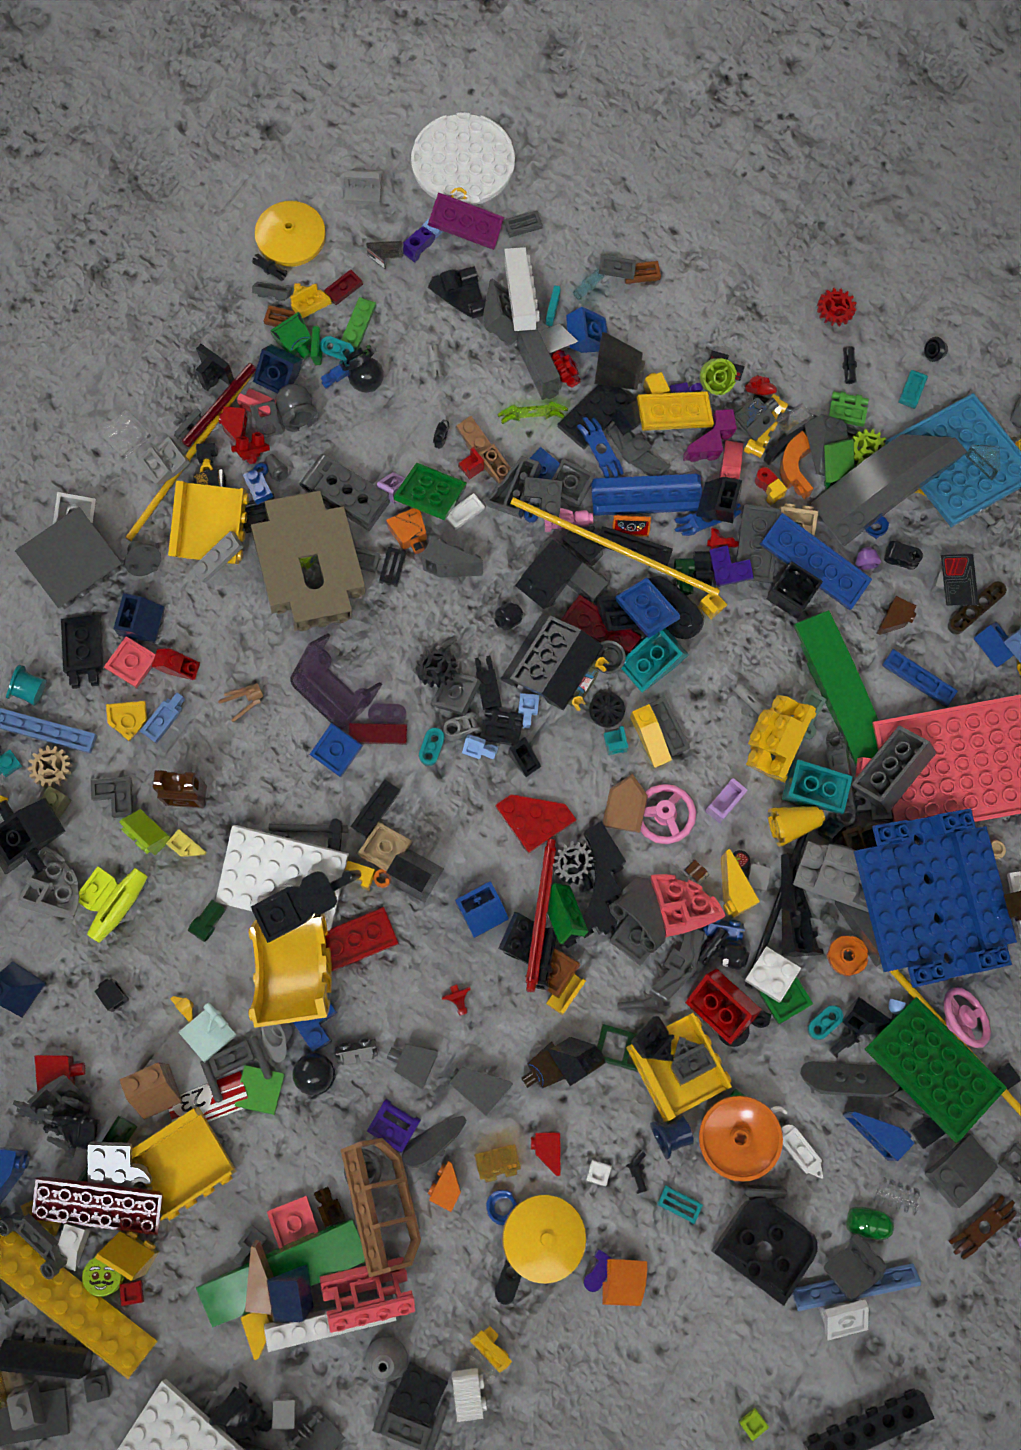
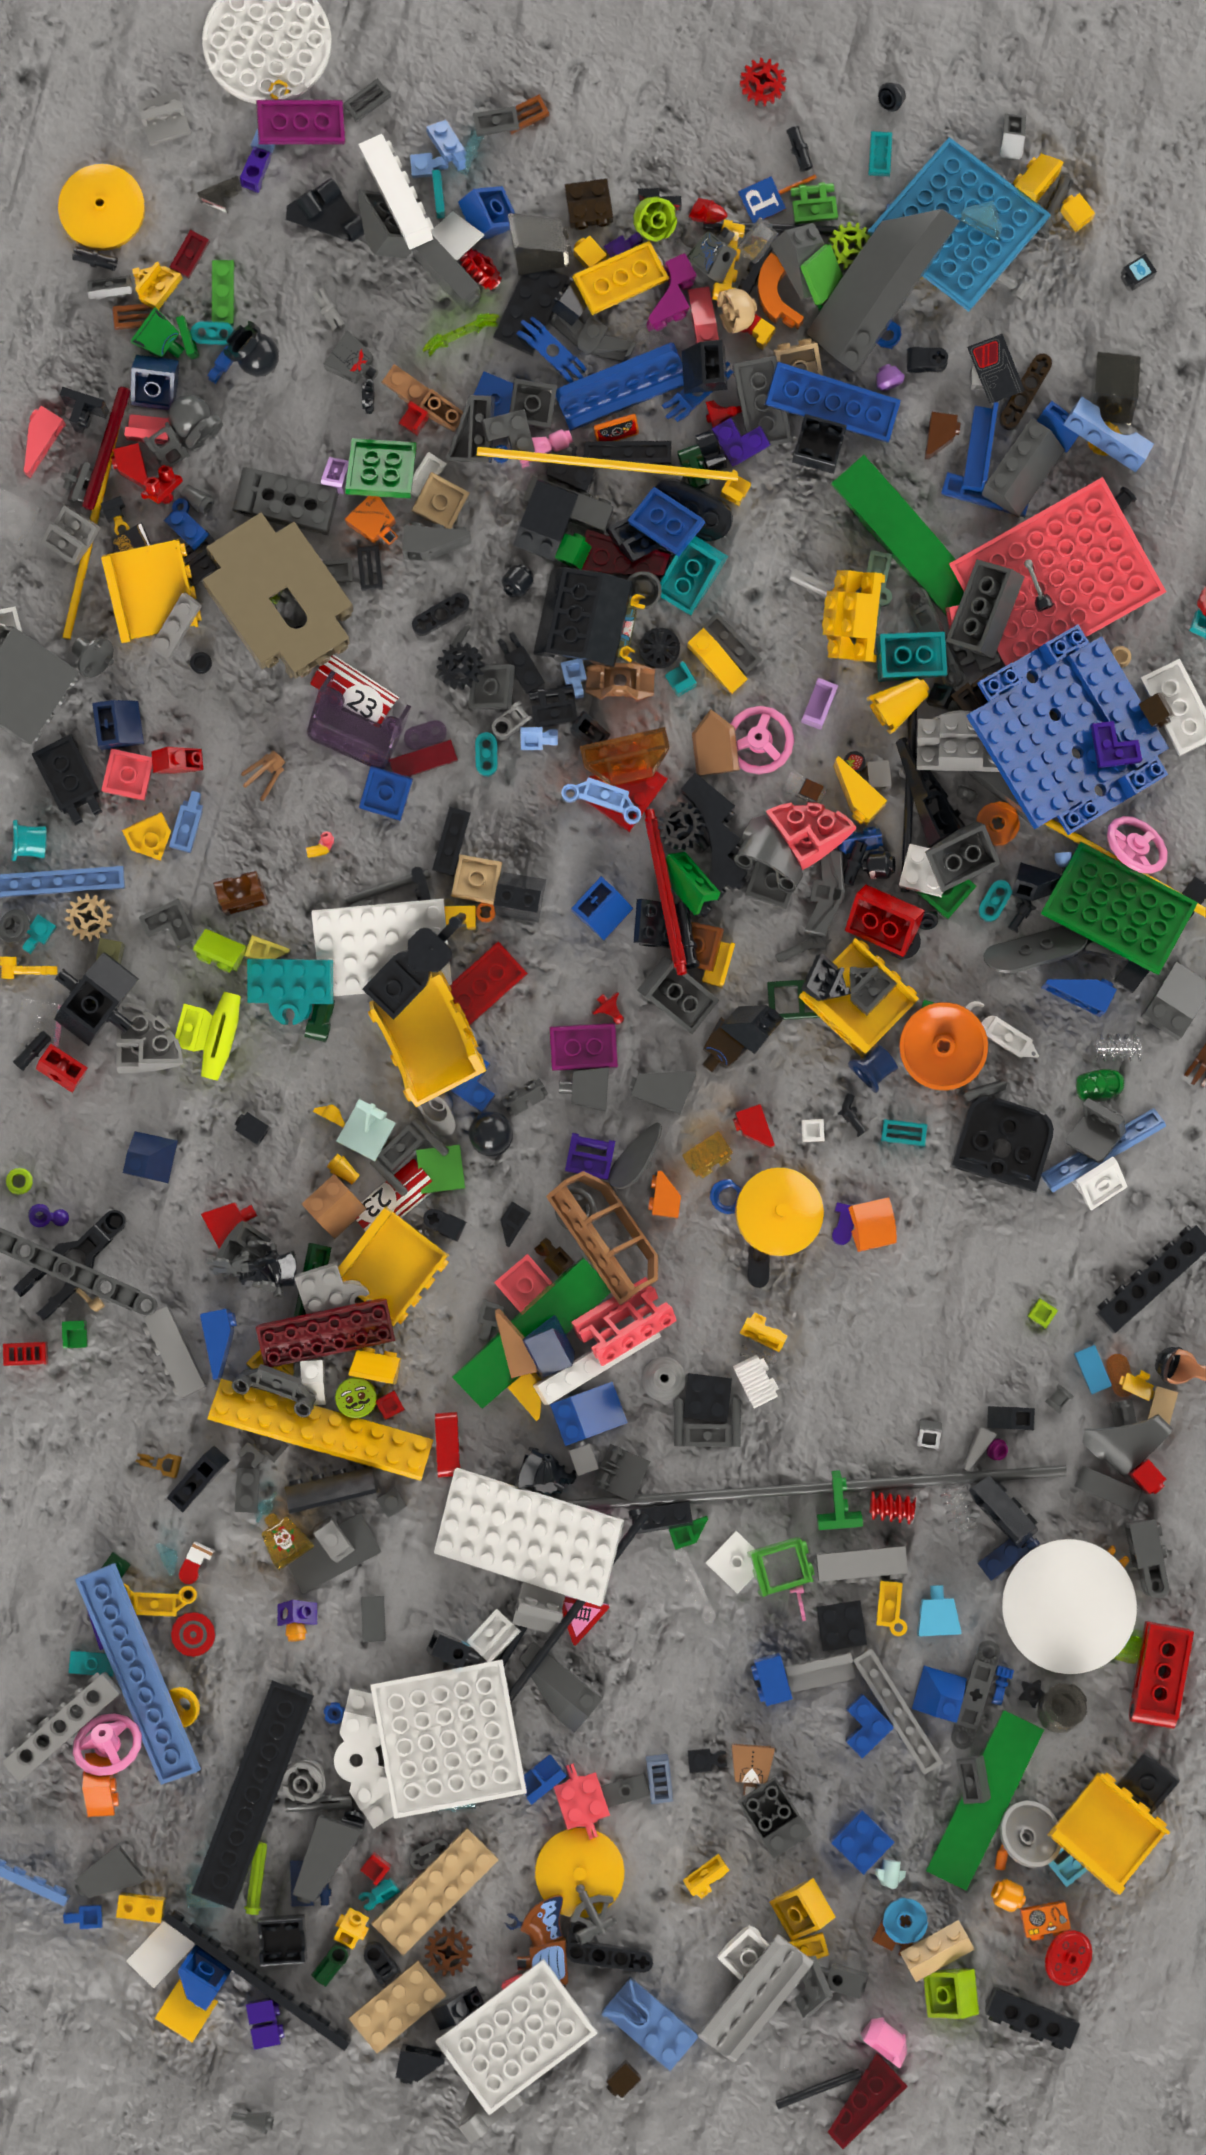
camera: 15 degrees left, 10 degrees up
(167, 1350) = (447, 1443): none -> red beam
(173, 379) = (42, 433): none -> coral slope
(174, 1058) = (342, 1169): none -> yellow cone
(192, 882) = (290, 985): none -> teal plate
(227, 594) = (201, 663): none -> black plate
(246, 1144) = (447, 1226): none -> black piece
(266, 777) = (323, 846): none -> arm
(304, 1161) = (513, 1221): none -> black tile
(305, 1369) = (588, 1413): none -> blue slope
(346, 660) = (359, 691): none -> sticker
(423, 1025) = (583, 1047): none -> magenta tile
(437, 403) = (350, 360): none -> dark grey torso
(450, 623) = (442, 605): none -> black beam
(469, 532) = (440, 501): none -> tan plate
(517, 814) = (603, 795): none -> light blue plate
(521, 1009) = (678, 995): none -> dark grey slope
(548, 280) = (424, 164): none -> light blue plate
(548, 788) = (627, 756): none -> clear orange wedge
(562, 606) = (573, 550): none -> green brick
(573, 271) = (447, 143): none -> medium blue hinge
(580, 729) = (638, 685): none -> medium nougat piece
(668, 352) = (589, 204): none -> dark brown plate
(761, 463) = (737, 309): none -> tan cylinder
(810, 393) = (764, 199): none -> blue piece
(810, 973) = (962, 856): none -> dark grey slope
(927, 638) = (980, 447): none -> blue panel
(944, 779) = (1042, 601): none -> hinge
(959, 666) = (1024, 468): none -> dark grey slope
(967, 924) = (1110, 751): none -> dark purple plate

